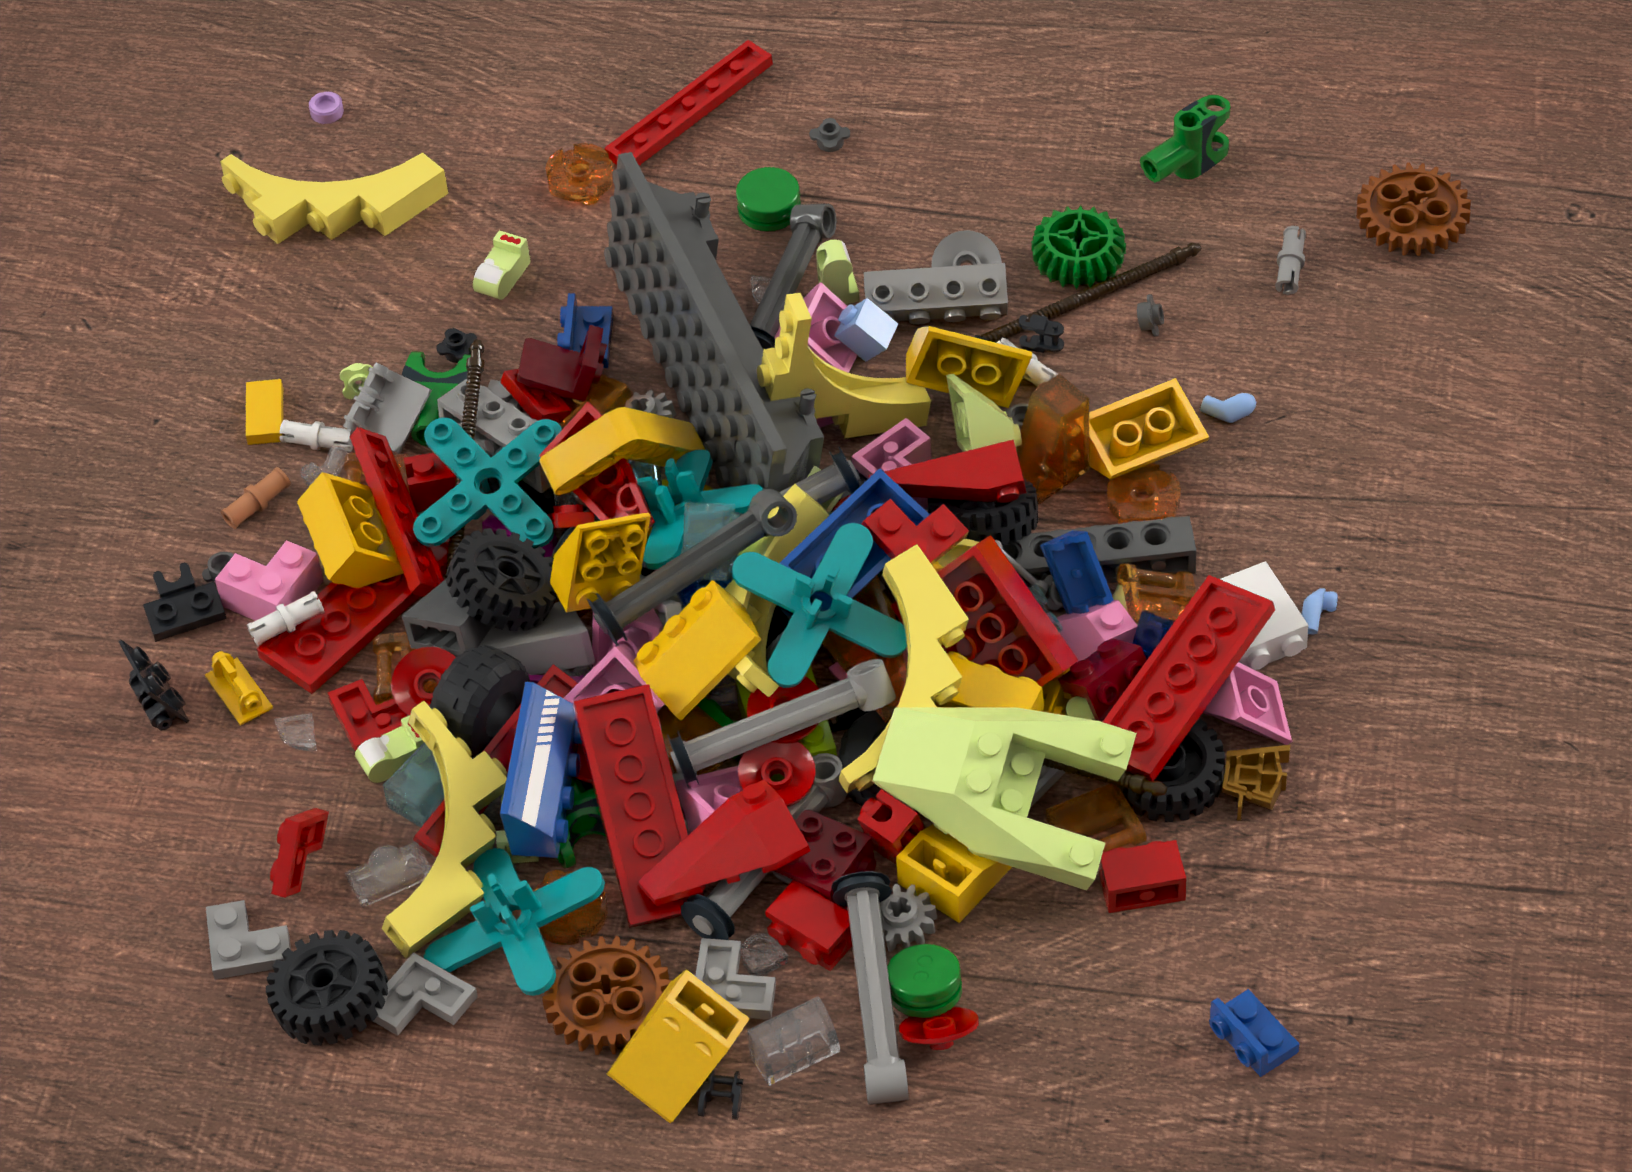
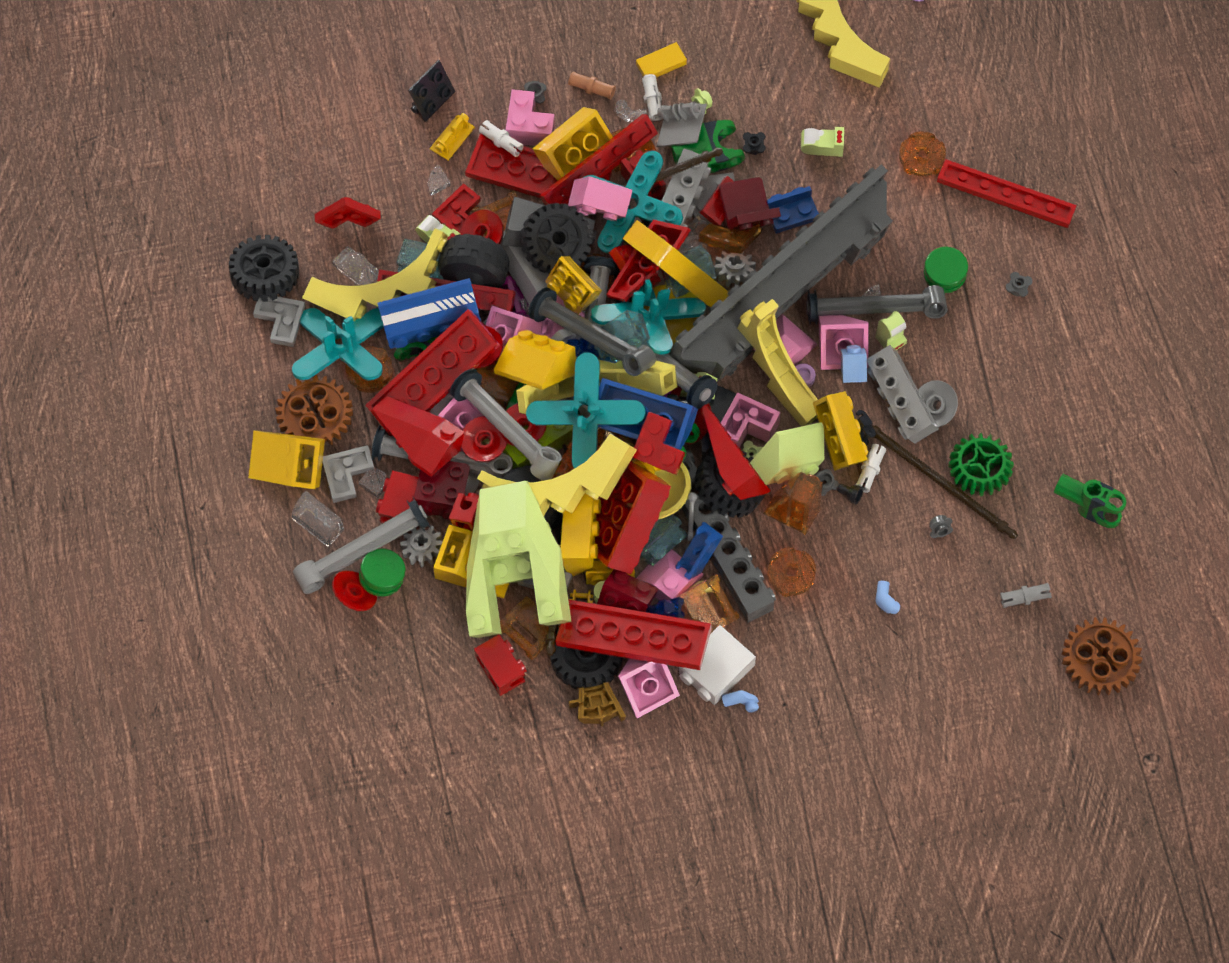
camera: 65 degrees right, 15 degrees up
(182, 605) = (500, 81): black plate -> none
(236, 949) = (280, 213): light grey plate -> none
(473, 499) = (599, 196): none -> bright pink brick
(735, 1094) = (276, 502): black piece -> none
(1048, 334) = (897, 467): black piece -> none
(1142, 429) = (832, 552): yellow slope -> none
(1252, 1032) = (415, 760): blue bracket -> none

